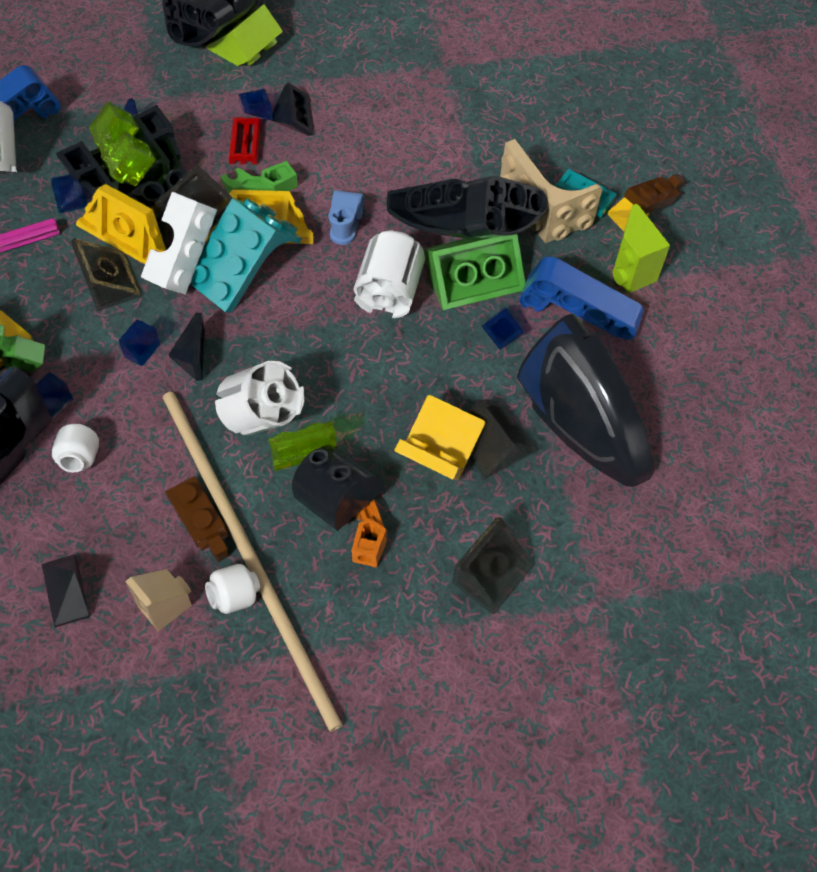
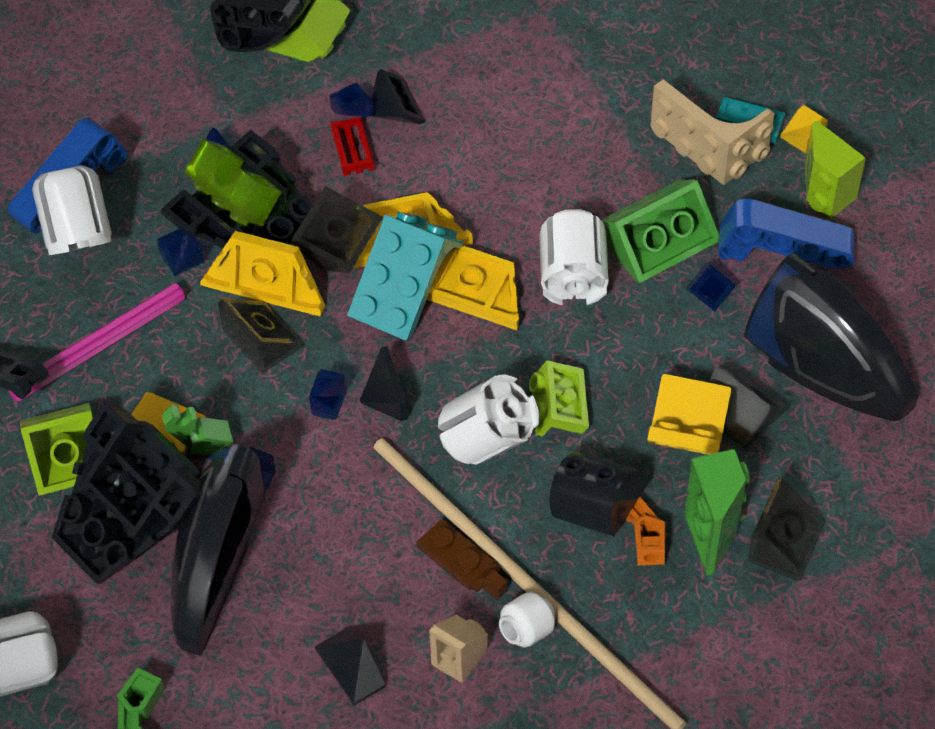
camera: 10 degrees left, 5 degrees down
(75, 447) = (304, 519): white head -> none
(191, 226) = (347, 252): white arch -> none
(275, 178) = (411, 173): bright green piece -> none
(290, 448) = (540, 462): clear neon green plate -> none
(301, 278) = (477, 286): none -> yellow wing
(336, 394) = (560, 398): none -> lime bracket
(345, 216) = (497, 205): medium blue piece -> none
(433, 526) = (715, 504): none -> bright green slope
(469, 208) = (635, 167): black panel -> none
(655, 193) = (827, 102): reddish brown hinge -> none

